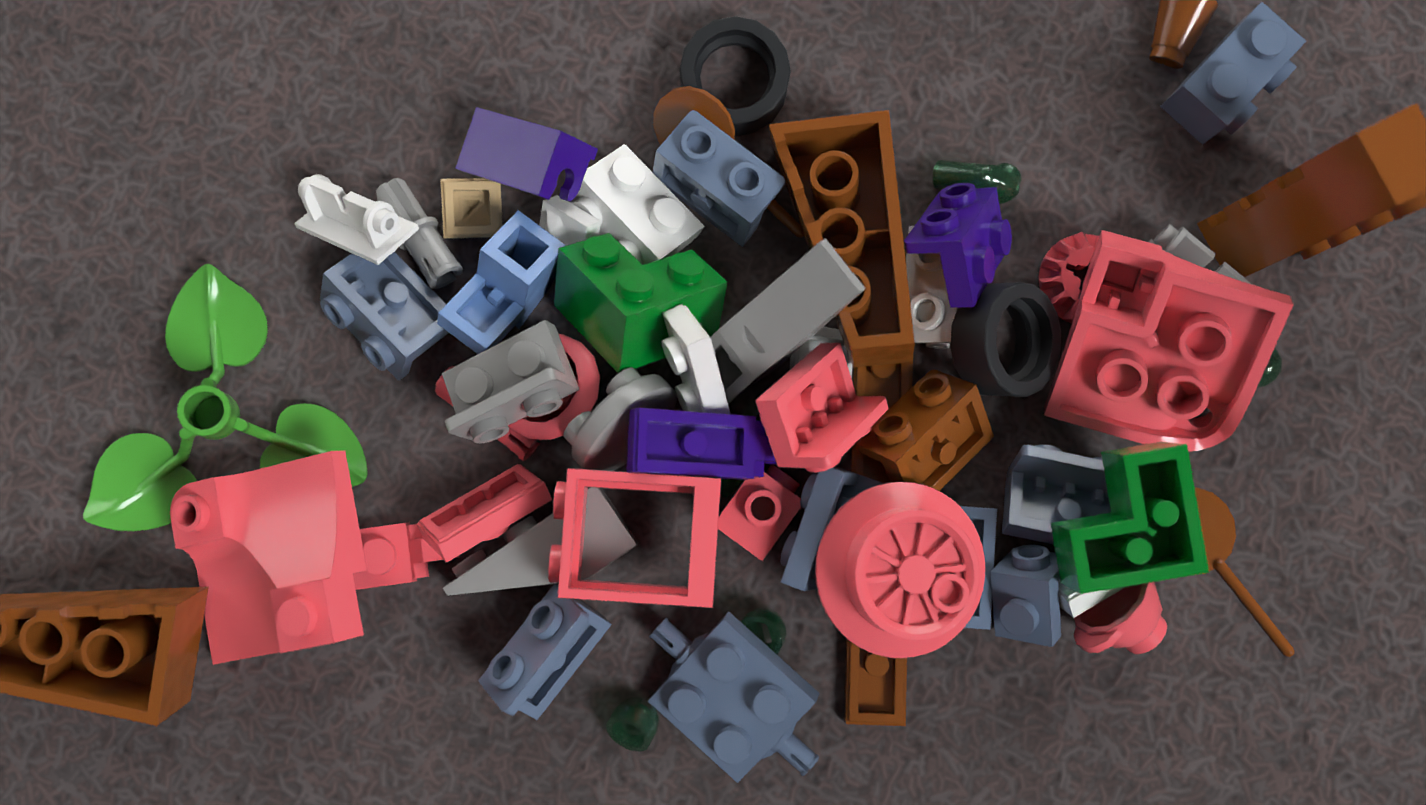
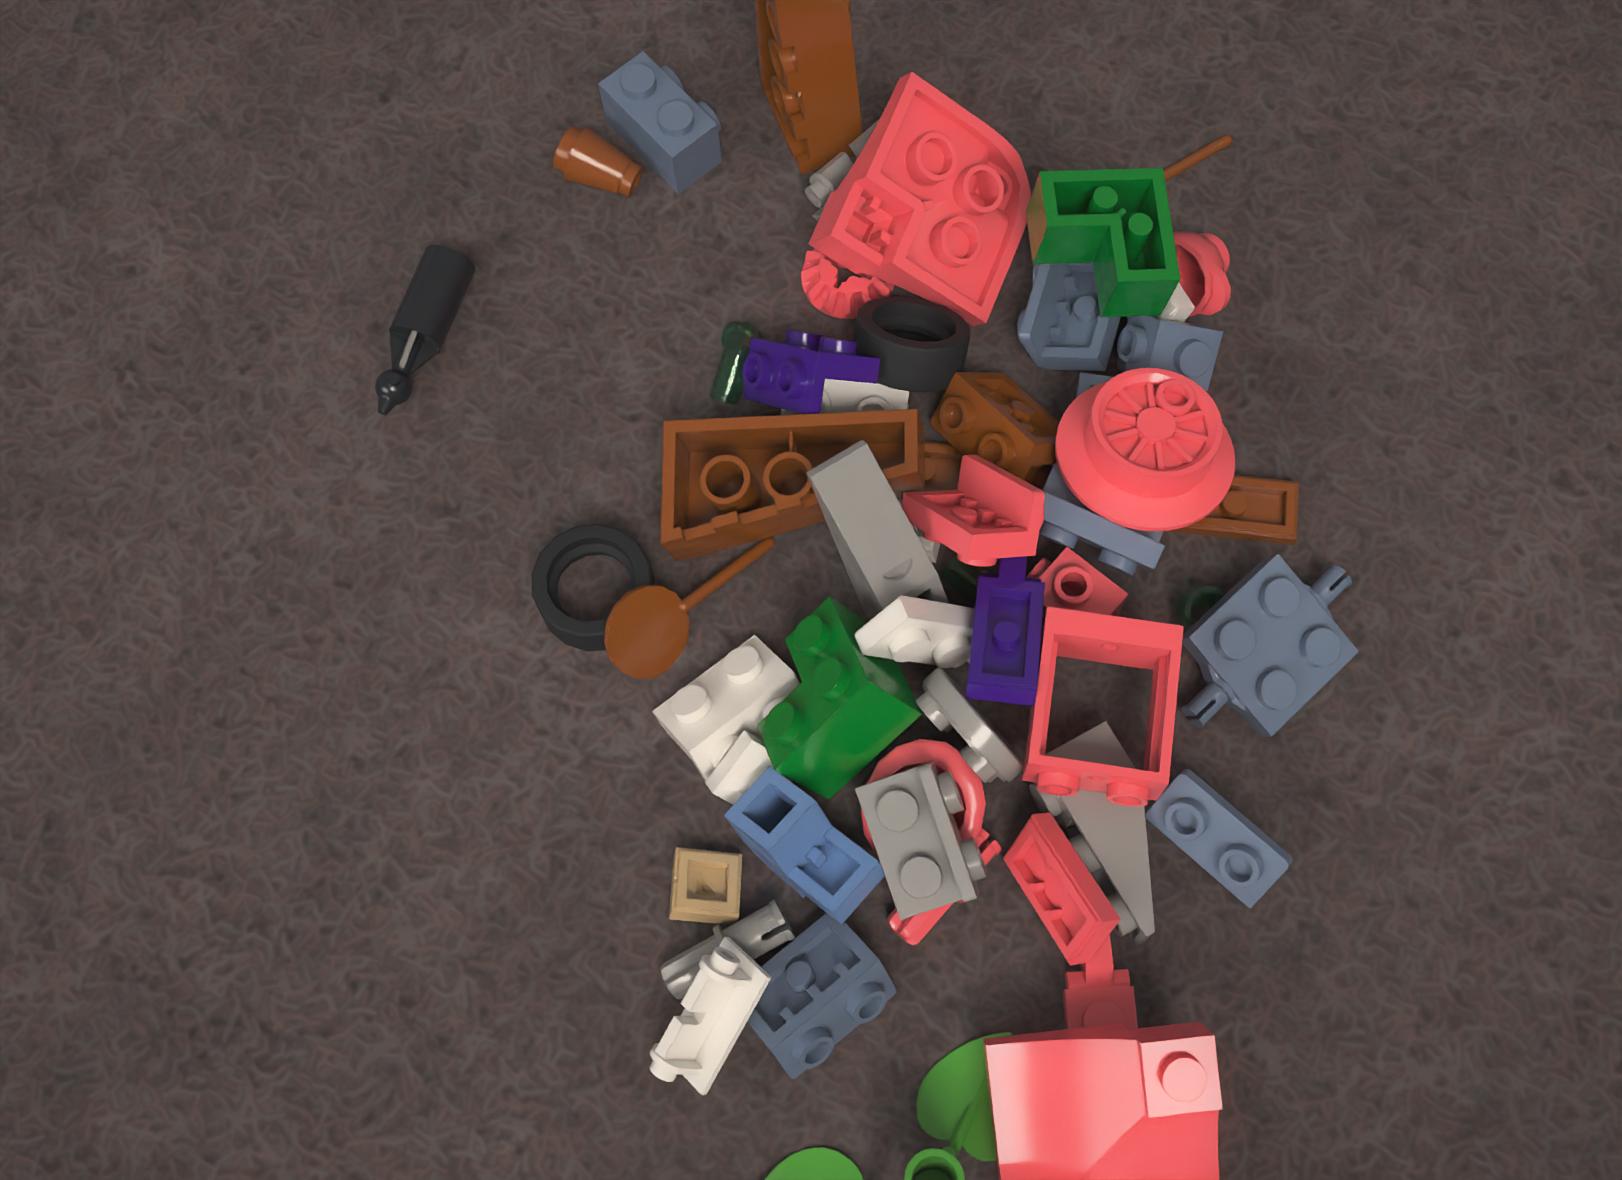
camera: 80 degrees left, 15 degrees down
(524, 155) = (659, 810): hinge -> none
(633, 724) = (1298, 741): clear green hinge -> none
(716, 176) = (708, 608): sand blue bracket -> none

